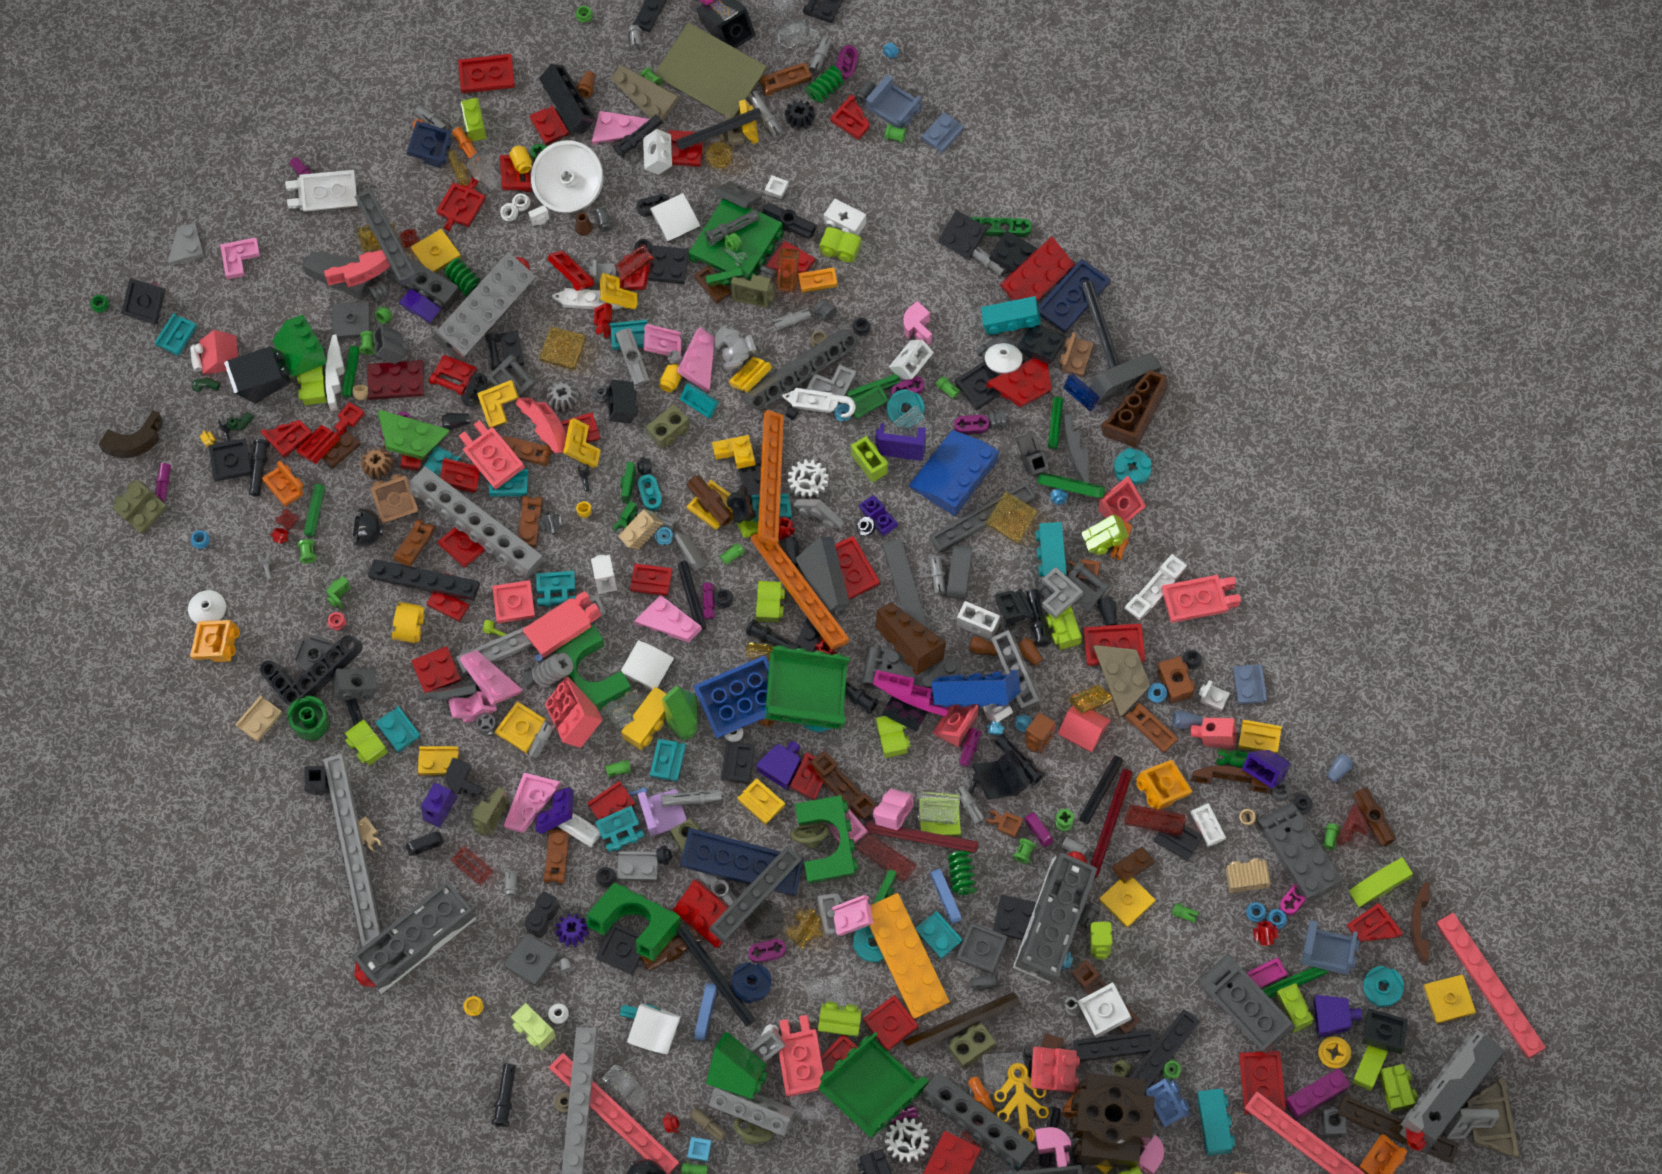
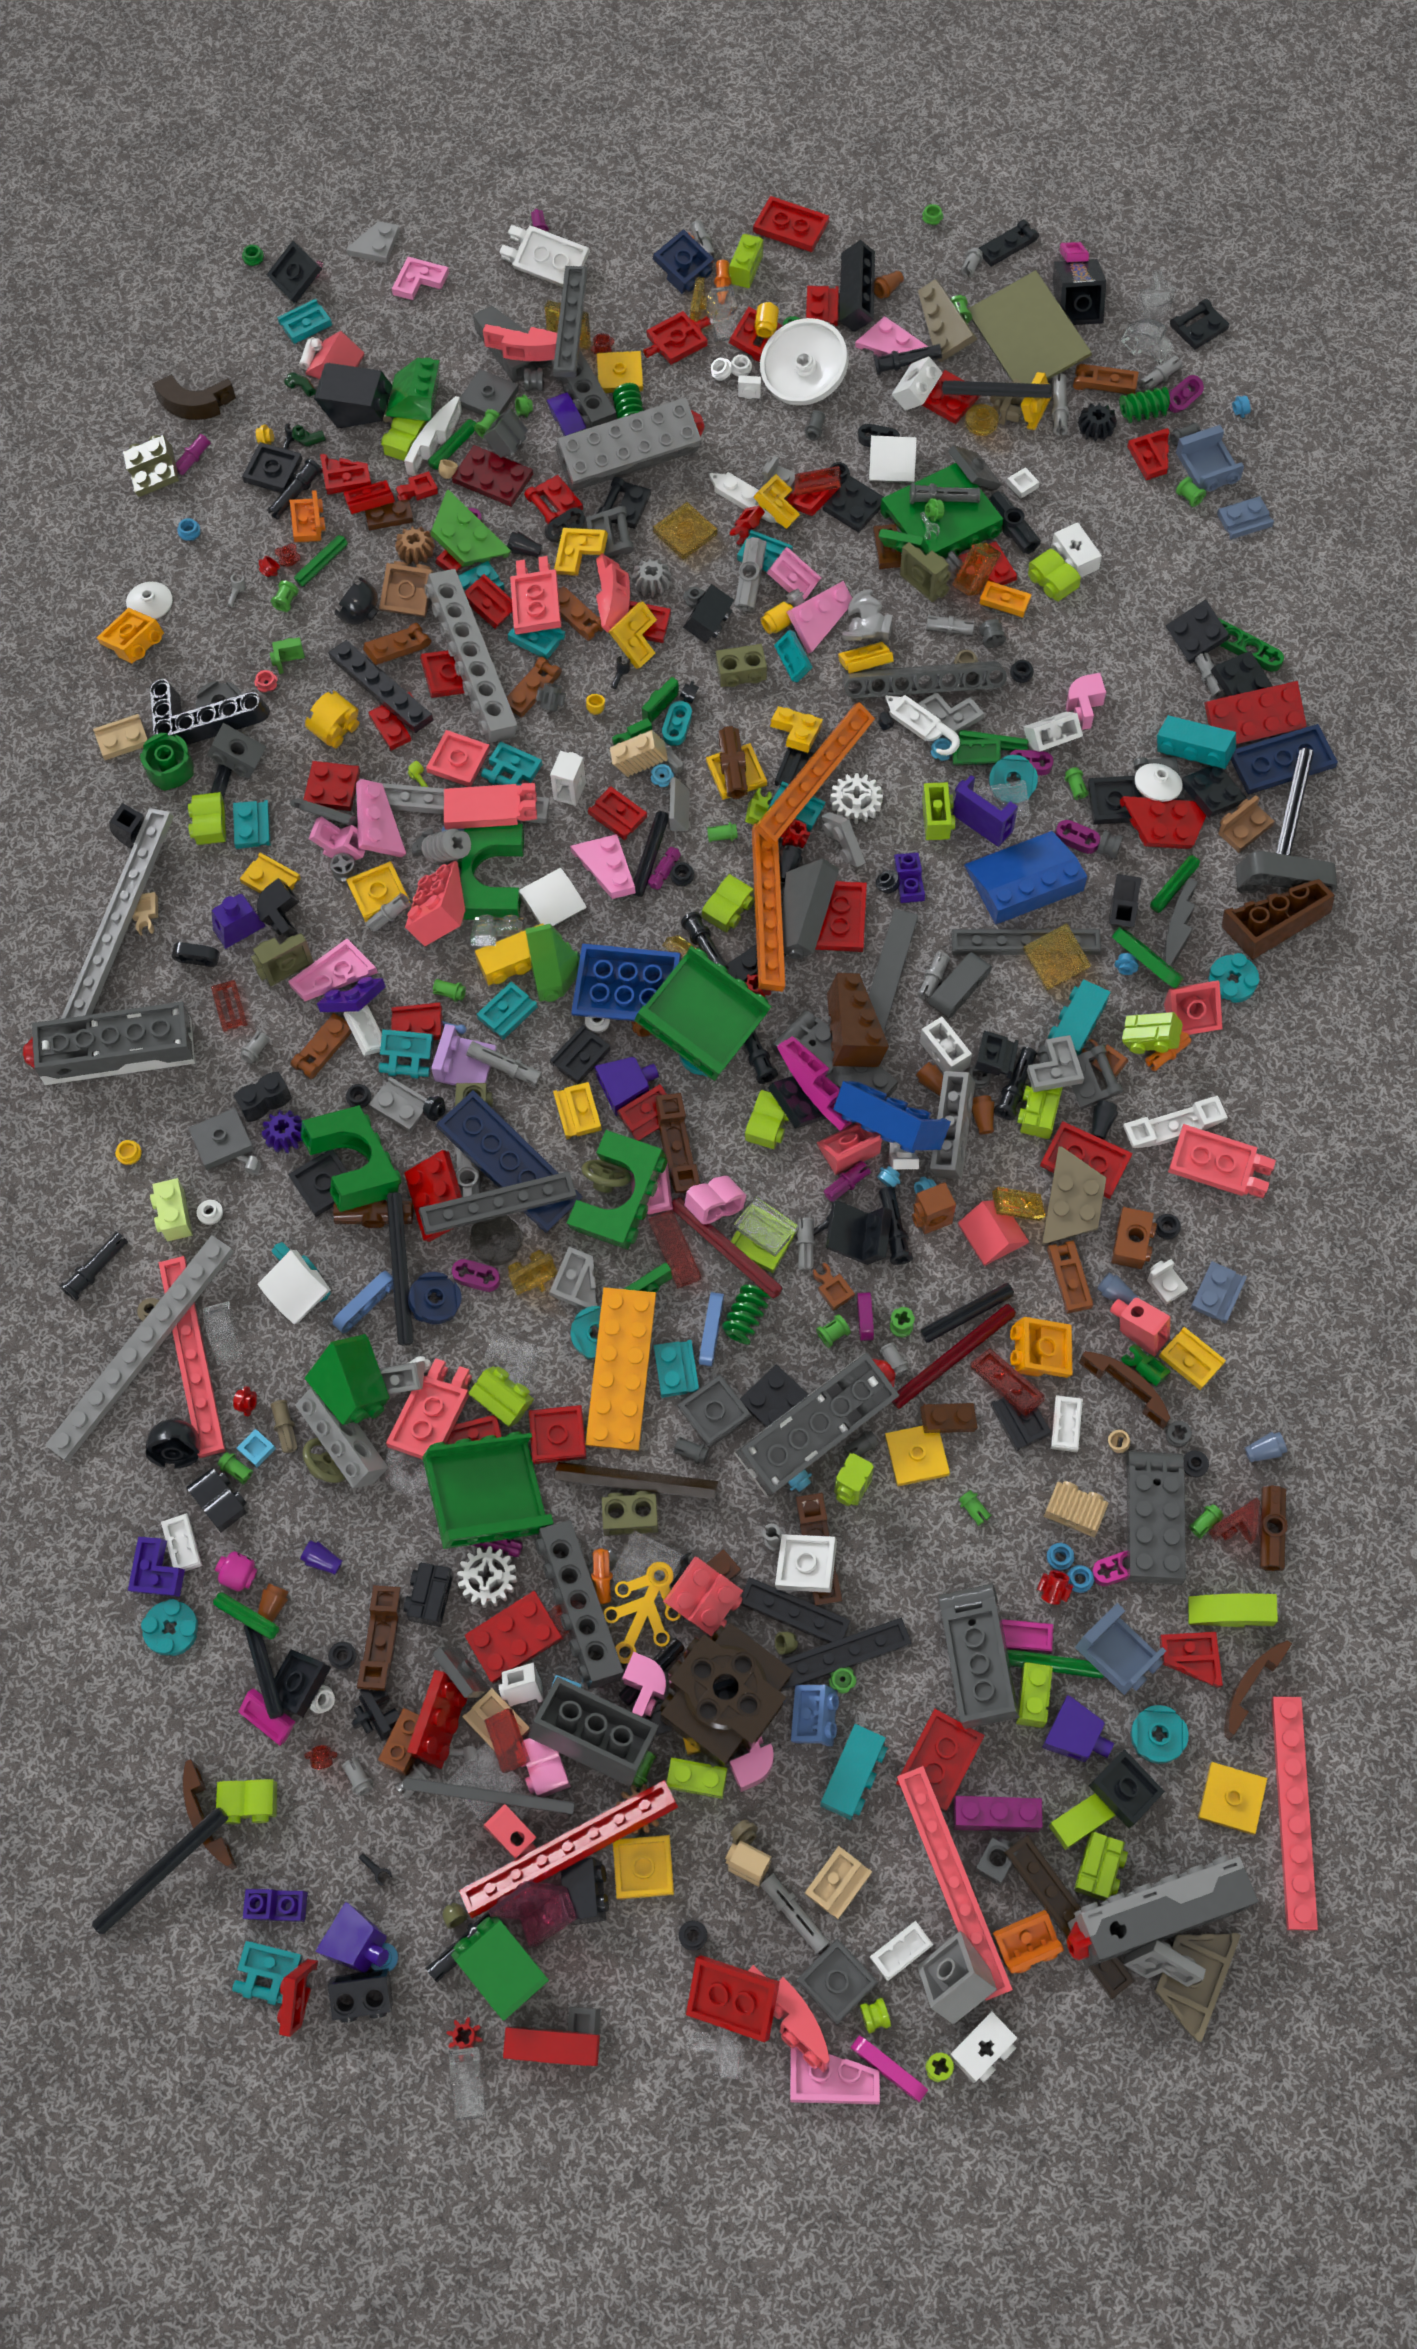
camera: 30 degrees right, 0 degrees up
(570, 270) = (745, 457): red plate -> none
(583, 224) = (790, 418): reddish brown cone -> none
(741, 505) = (762, 784): black hips -> none
(852, 915) = (589, 1288): bright pink plate -> none
(1081, 392) = (1225, 865): clear blue tile -> none
(1157, 699) = (1105, 1248): dark azure plate -> none
(1270, 767) = (1176, 1395): dark purple torso -> none
(1342, 1049) = (1051, 1764): yellow gear -> none

